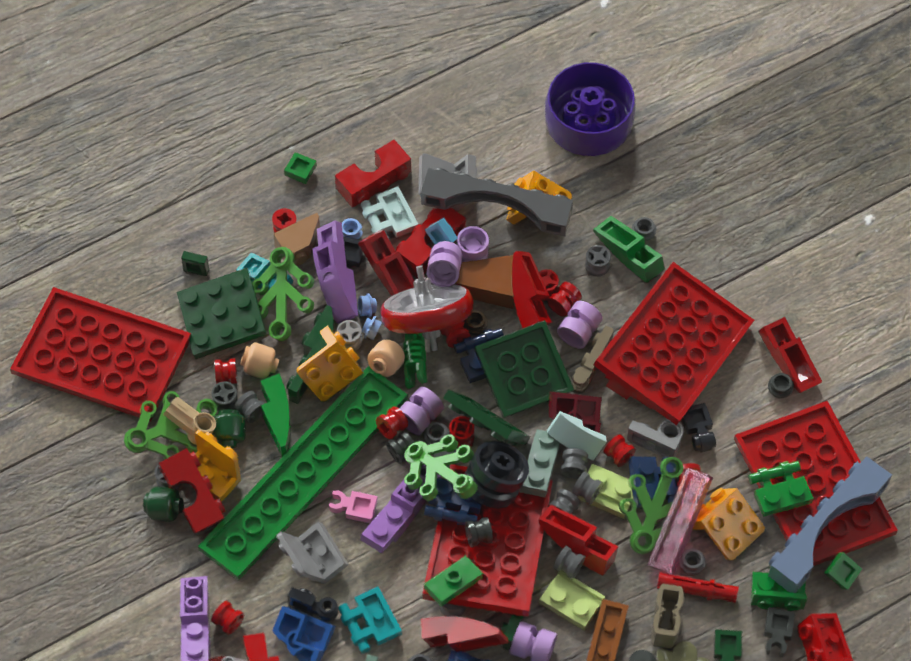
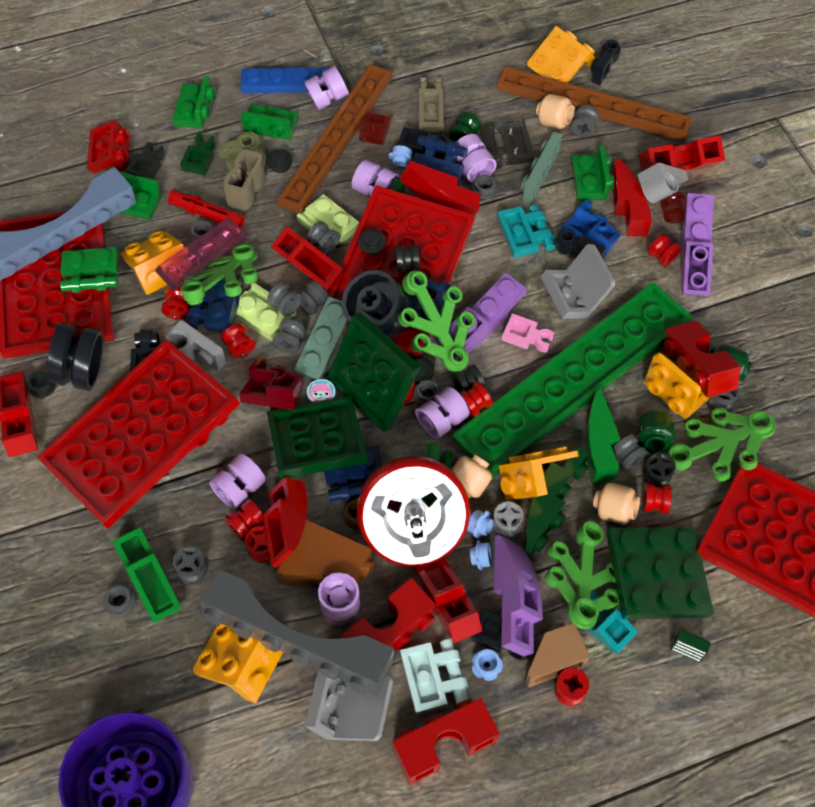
camera: 170 degrees left, 0 degrees up
(189, 419) = (702, 434): tan piece -> none
(300, 168) = (542, 771): green plate -> none
(441, 232) = (374, 609): medium azure plate -> none
(444, 264) = (384, 554): lavender wheel -> none
(453, 581) = (443, 217): green plate -> none
(517, 548) = (372, 241): none -> pearl dark grey plate
(531, 420) = (320, 390): none -> tile
(572, 434) = (279, 354): light aqua slope -> none
(585, 374) = (234, 441): dark tan hinge -> none
(757, 393) = (74, 356): none -> black wheel
(843, 571) = (63, 199): green plate -> none

